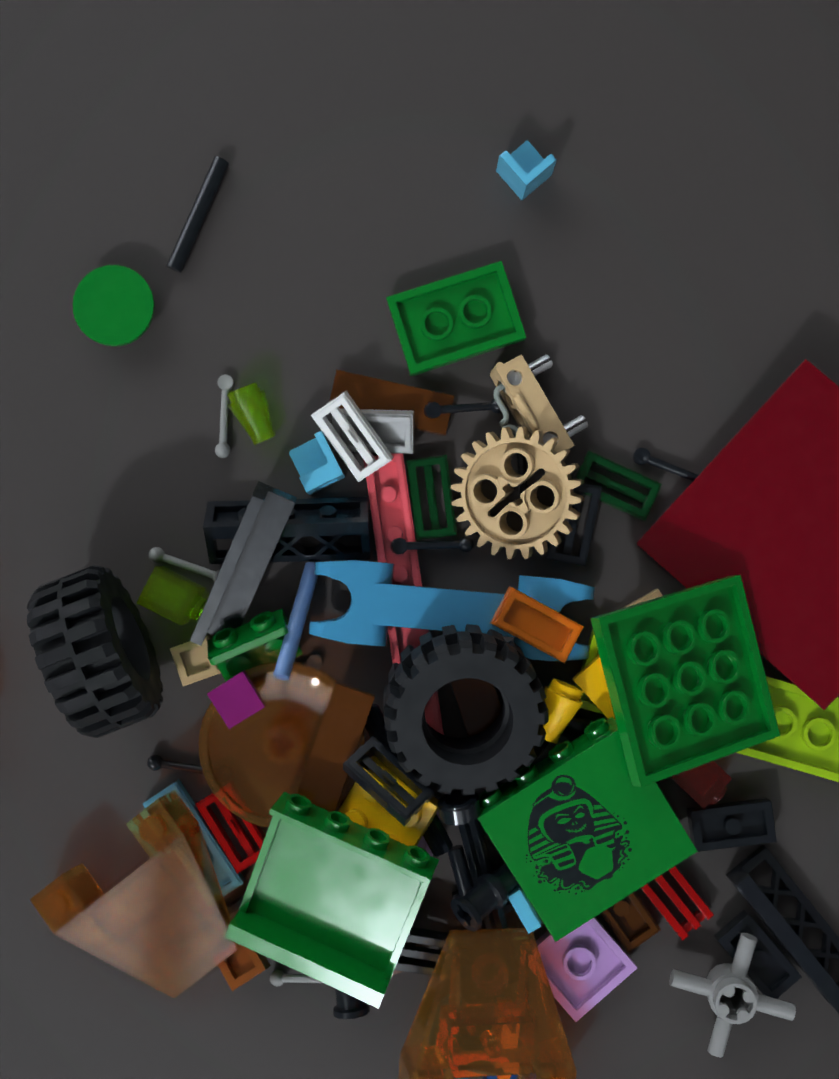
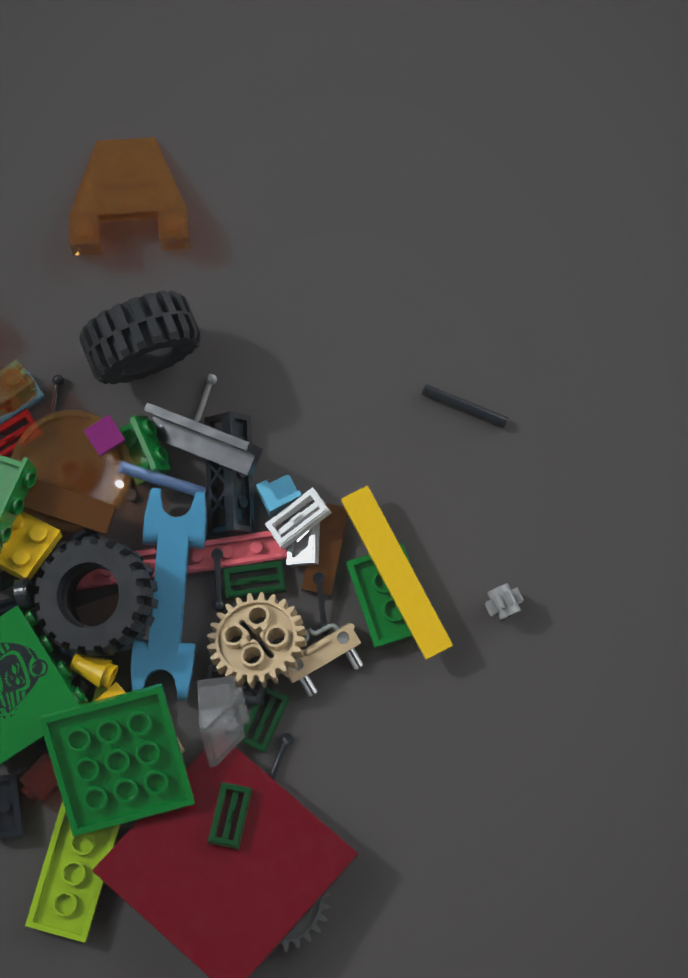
camera: 90 degrees right, 10 degrees down
(113, 305) = (393, 346): green piece -> none
(173, 596) = (180, 391): clear neon green brick -> none
(193, 662) = (131, 405): tan tile -> none
(226, 384) = (339, 427): light grey hinge -> none
(252, 412) = (317, 446): clear neon green cone -> none
(379, 793) = (28, 558): black tile -> none
(428, 304) = (396, 573): none -> yellow tile
(466, 165) = (504, 601): none -> light grey gear
(525, 169) = (504, 647): medium azure panel -> none
(536, 624) = (157, 652): orange tile -> none
(624, 539) = (221, 716): none -> clear slope
(790, 535) = (224, 841): none -> dark green tile

